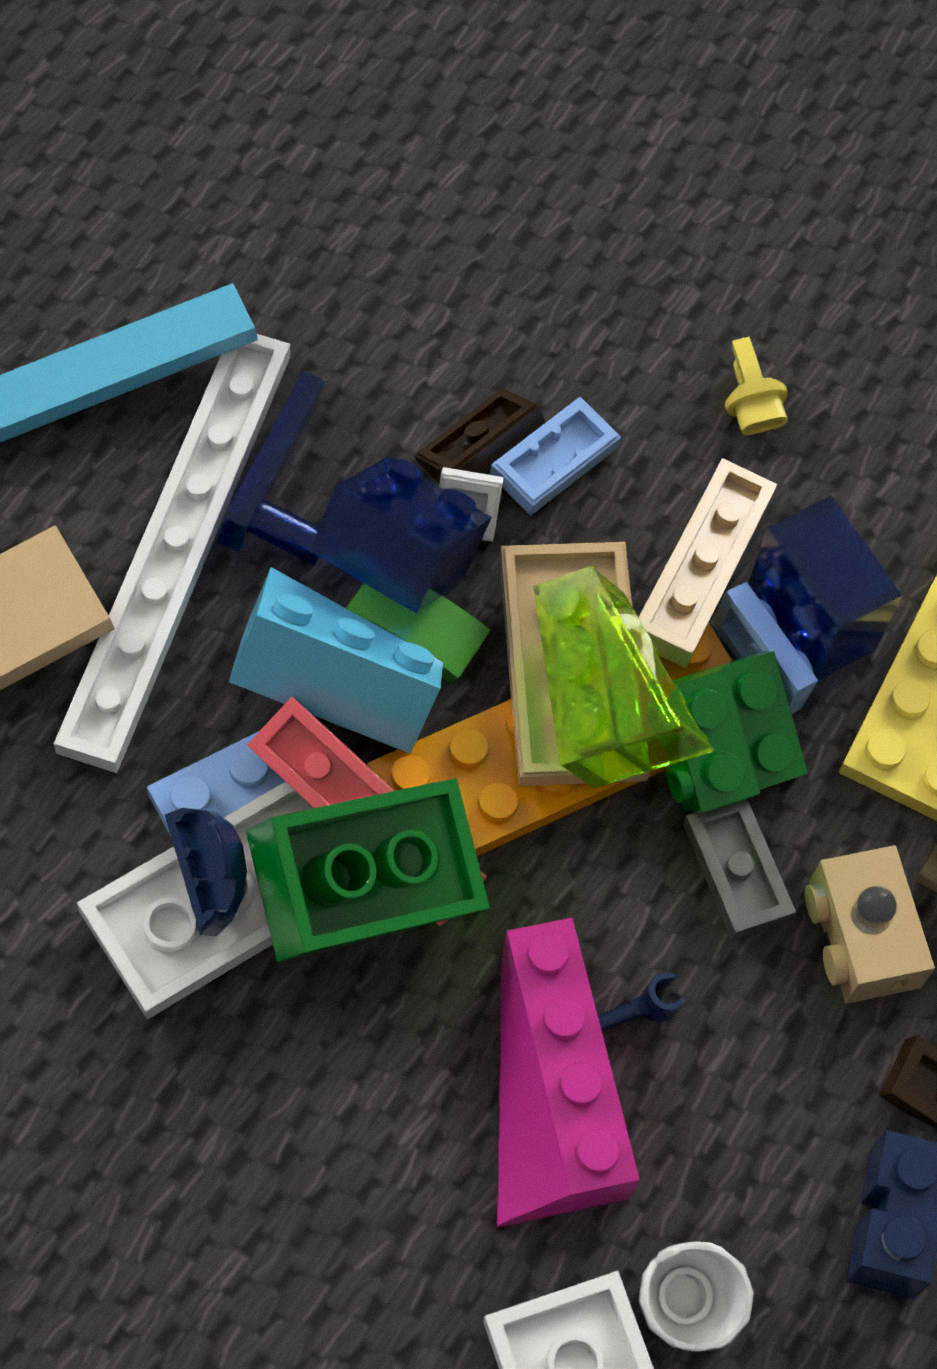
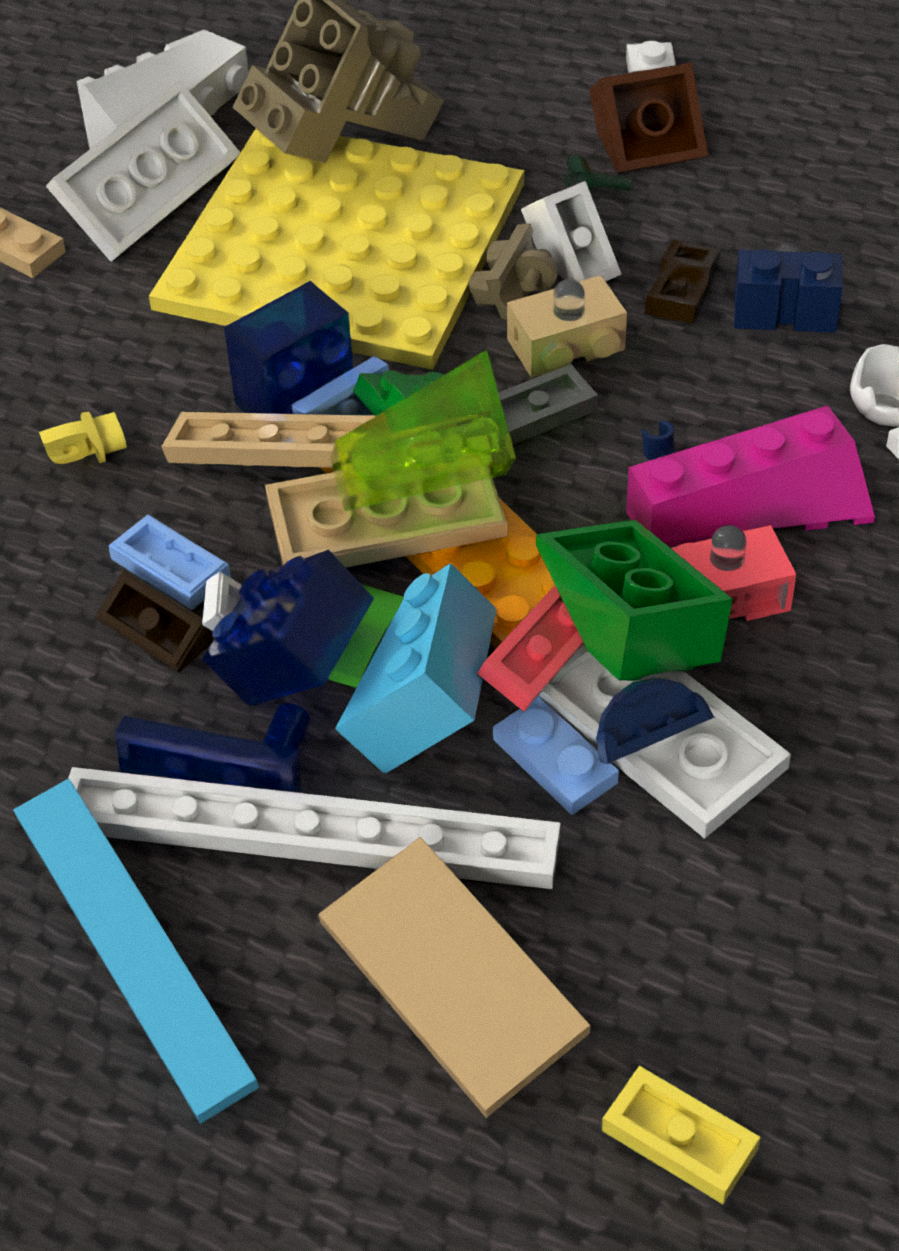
camera: 90 degrees left, 15 degrees down
(413, 1011) = (747, 568): none -> coral piece

